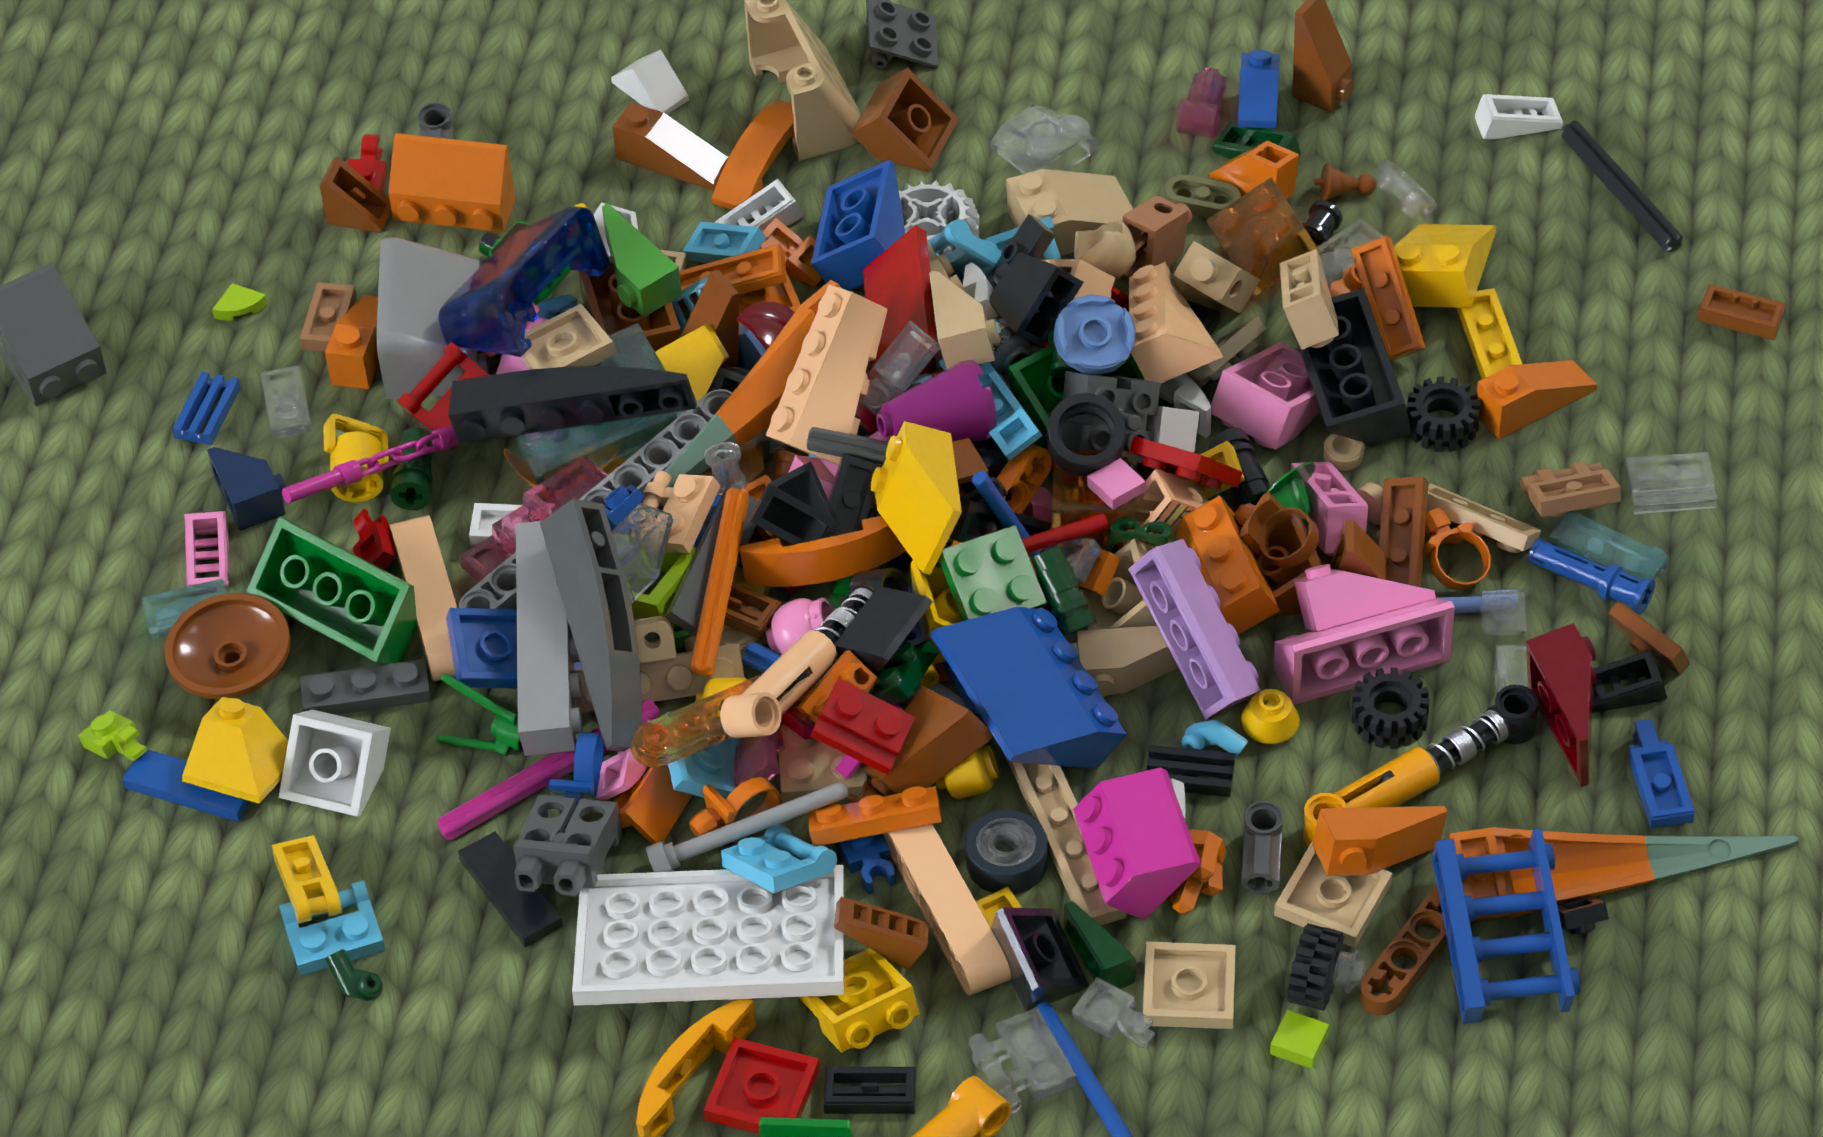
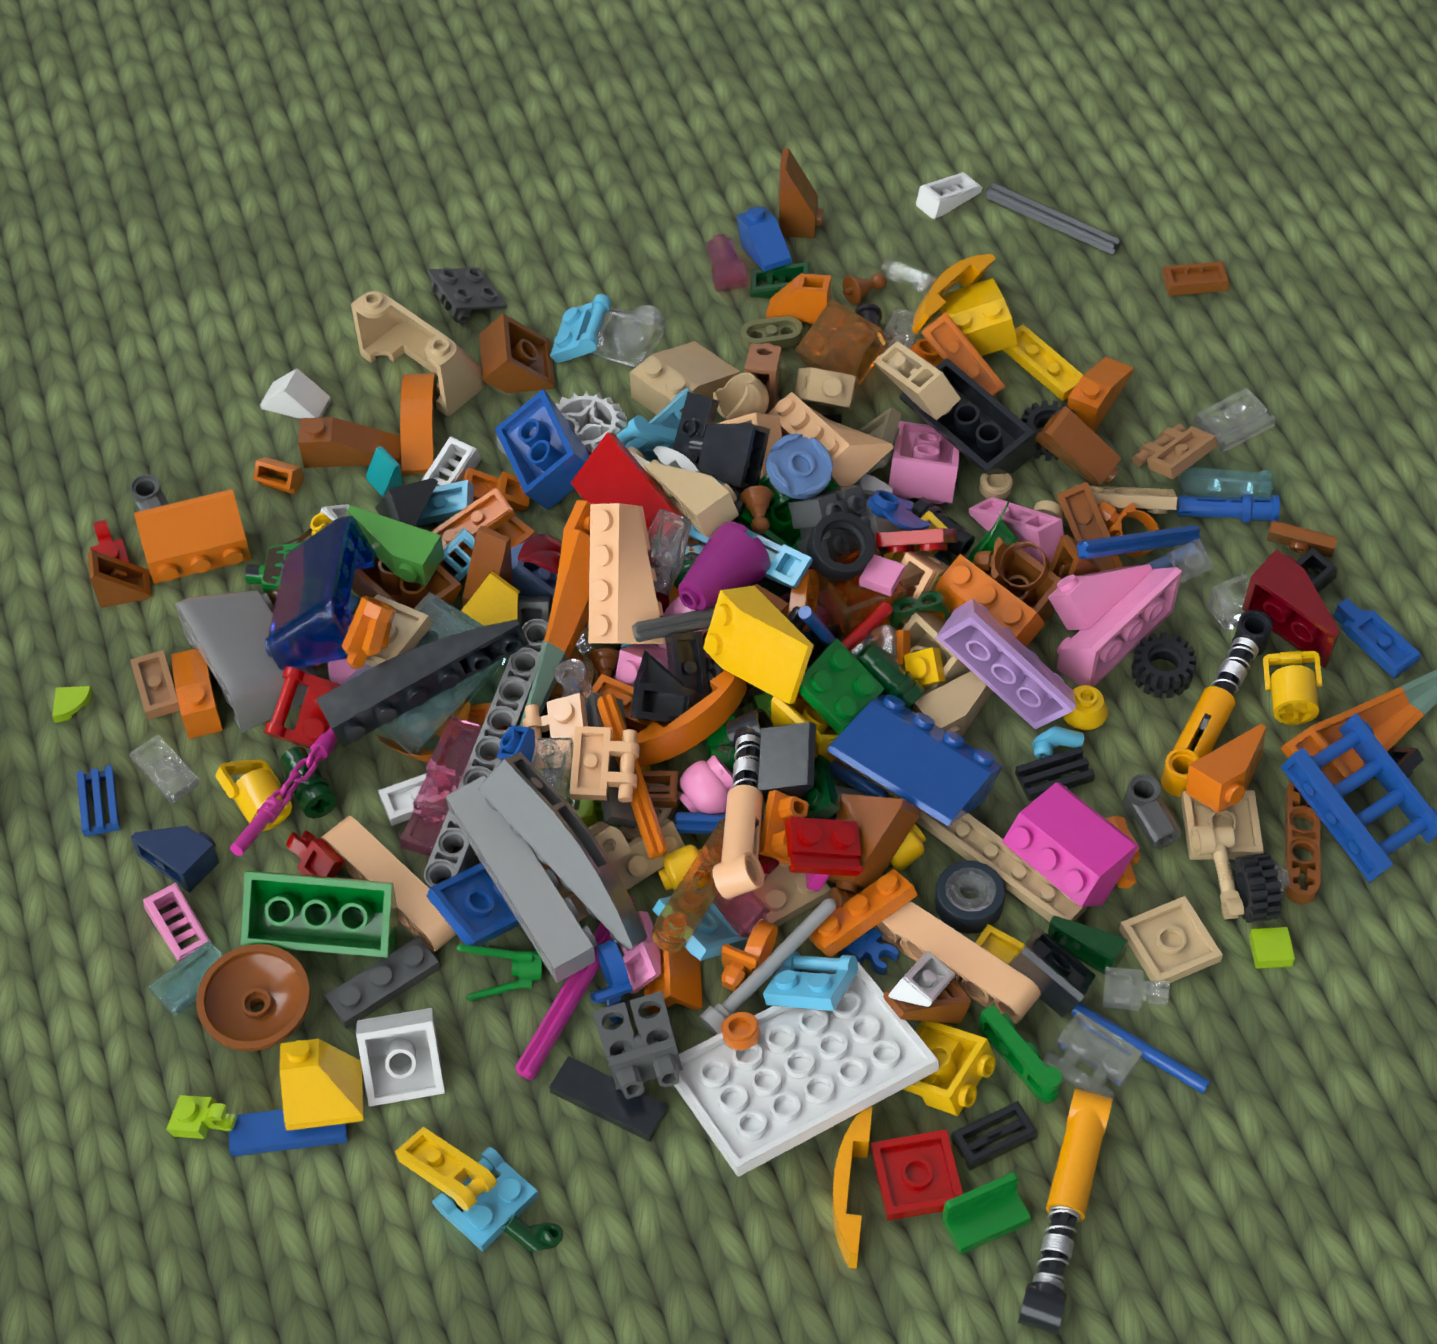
camera: 30 degrees left, 5 degrees up
(538, 330) = (368, 631): none -> orange rock
(572, 142) = (268, 466): none -> orange piece
(674, 876) = (741, 1031): none -> orange tile
(679, 547) = (592, 764): none -> light nougat plate
(684, 227) = (406, 501): none -> black slope
(689, 193) = (384, 472): none -> teal slope
(884, 902) = (923, 981): none -> white slope
(949, 1025) = (1020, 1055): none -> green plate
(995, 111) = (580, 329): none -> medium azure plate
(1029, 356) = (757, 502): none -> dark orange piece
(1113, 602) = (926, 666): none -> yellow plate
(1184, 426) = (897, 510): none -> blue plate
(1302, 903) = (1215, 842): none -> tan brick
(1440, 563) = (1137, 542): none -> blue axle
(1447, 439) = (1079, 447): none -> dark orange slope
(1467, 206) = (963, 272): none -> light orange slope
(1517, 785) = (1293, 686): none -> yellow piece

